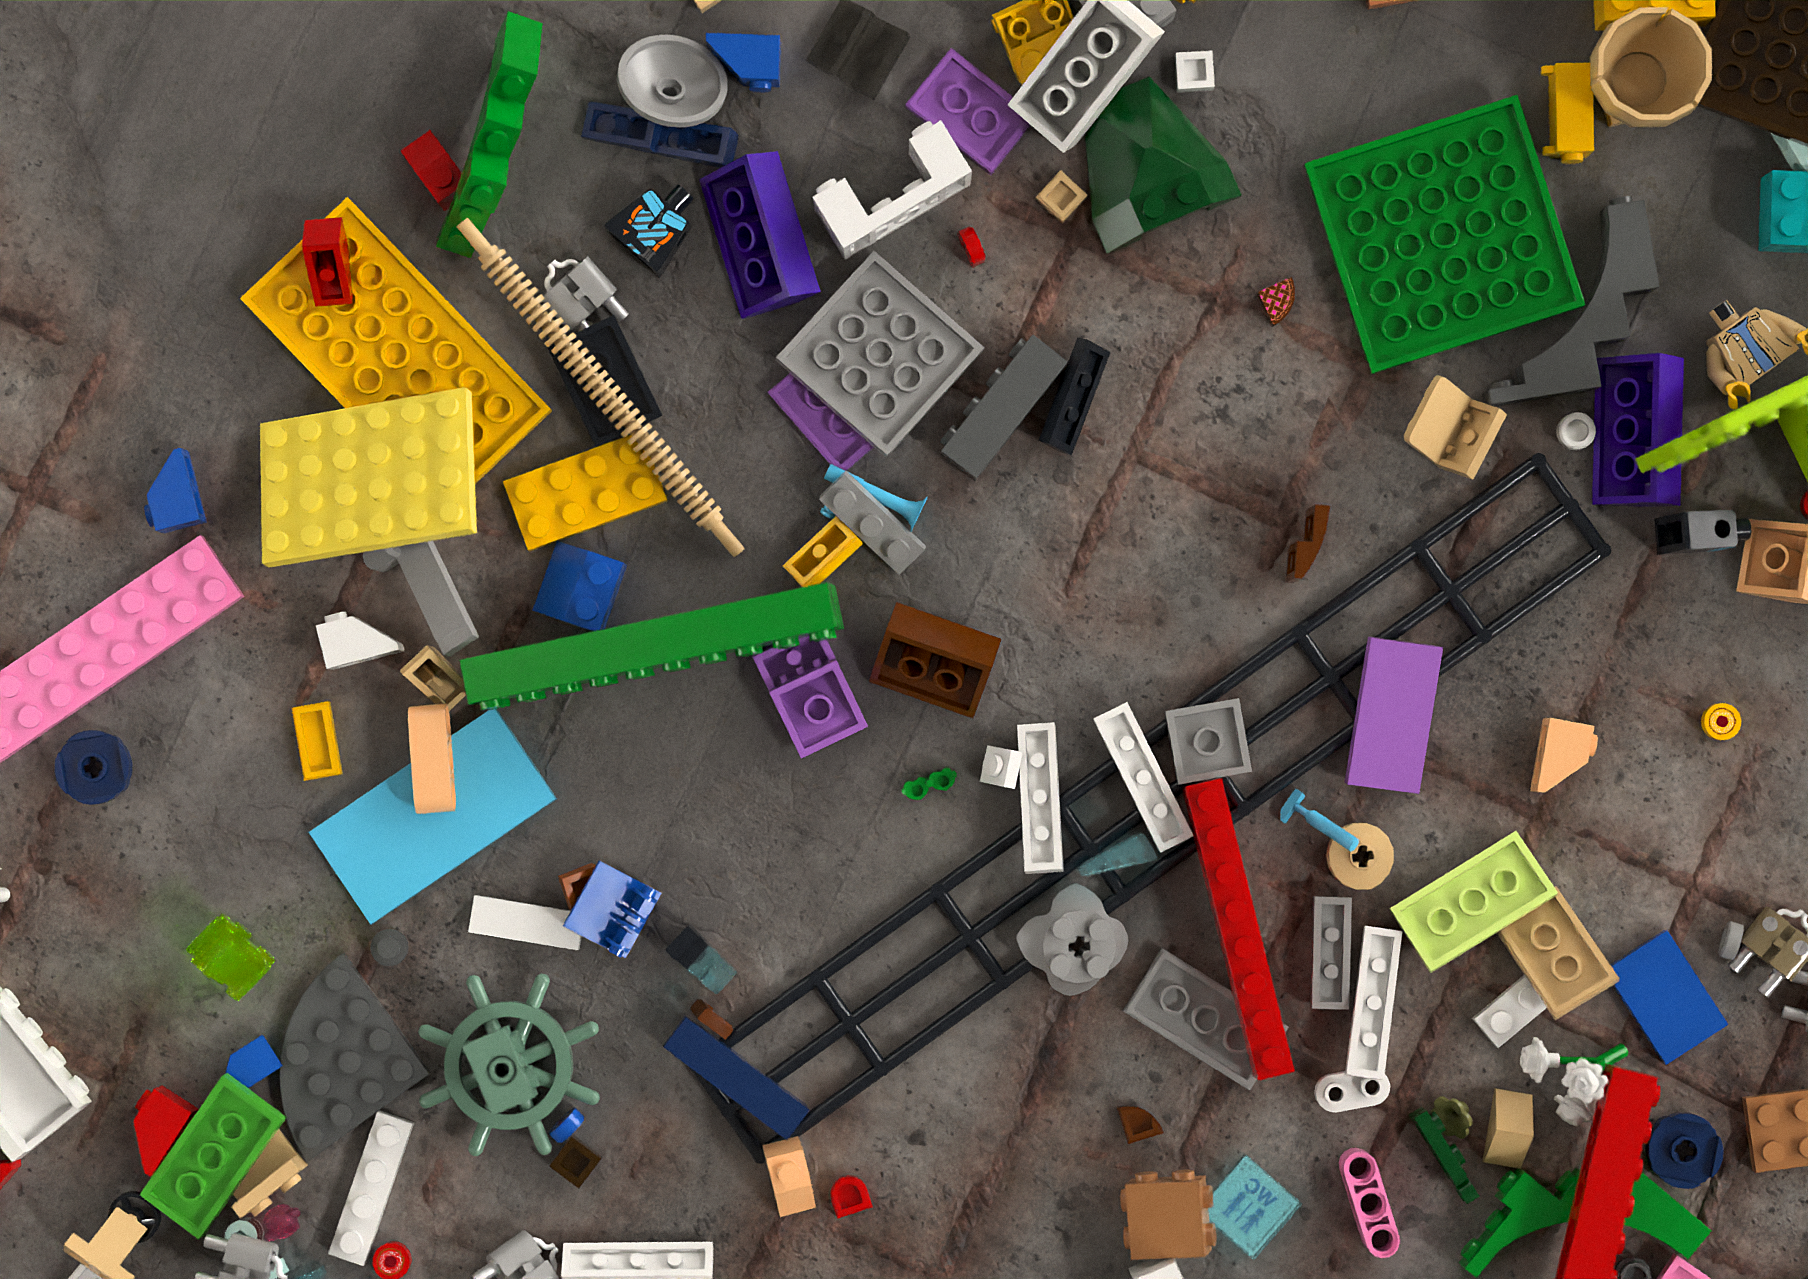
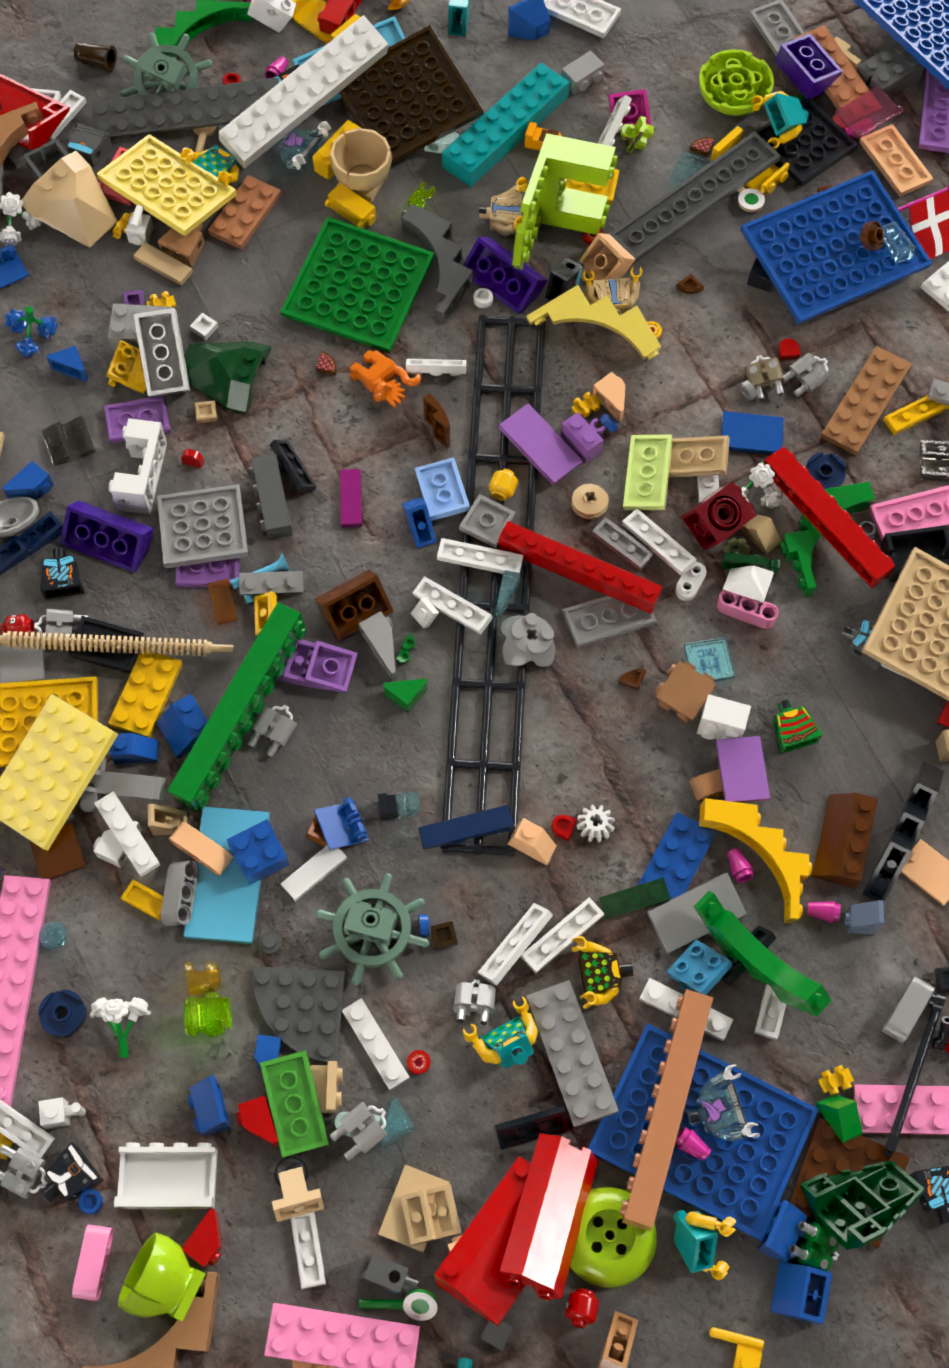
camera: 50 degrees left, 20 degrees down
(125, 1055) = (209, 1107): none -> blue slope
(135, 848) = (113, 1011): none -> white plant
(189, 671) = (55, 941): none -> clear light blue plate
(265, 914) = (203, 981): none -> clear yellow helmet
(281, 1222) = (354, 1097): clear pink plate -> none
(284, 588) = (62, 855): none -> reddish brown slope
(354, 780) = (179, 893): none -> light grey beam
(369, 651) = (127, 834): none -> white plate
(482, 299) = (21, 664): none -> light grey tile
(484, 838) = (258, 852): none -> blue brick
(498, 550) = (134, 749): none -> blue slope
(530, 242) = (17, 623): none -> red head
(674, 705) = (273, 726): none -> light grey piece
(712, 1020) = (429, 819): reddish brown tile -> none
(795, 478) = (222, 601): none -> clear orange tile
(863, 839) = (405, 692): none -> green slope
(872, 1234) = (587, 820): none -> white gear
(914, 739) = (379, 637): none -> light grey slope
(1094, 516) = (351, 498): none -> magenta tile
(1132, 644) = (419, 522): none -> blue slope
(1208, 635) = (442, 489): none -> light blue plate
(1282, 718) = (503, 484): none -> yellow head
(1317, 821) = (560, 505): medium azure piece -> none
(1320, 392) = (378, 374): none -> orange animal
(1400, 462) = (436, 366): none -> white plate
(1403, 1178) = (749, 582): none -> white slope
(1453, 428) = (441, 337): tan bracket -> none
(1456, 765) = (583, 437): none -> medium lavender brick
(1476, 1062) = (719, 515): none -> dark red brick
(1508, 724) = (586, 406): none -> yellow piece
(1510, 783) = (609, 422): none -> blue tile
(1656, 589) = (574, 307): none -> light yellow arch
(1661, 199) = (420, 194): none -> clear neon green plate
(1732, 622) = (621, 291): none -> tan torso

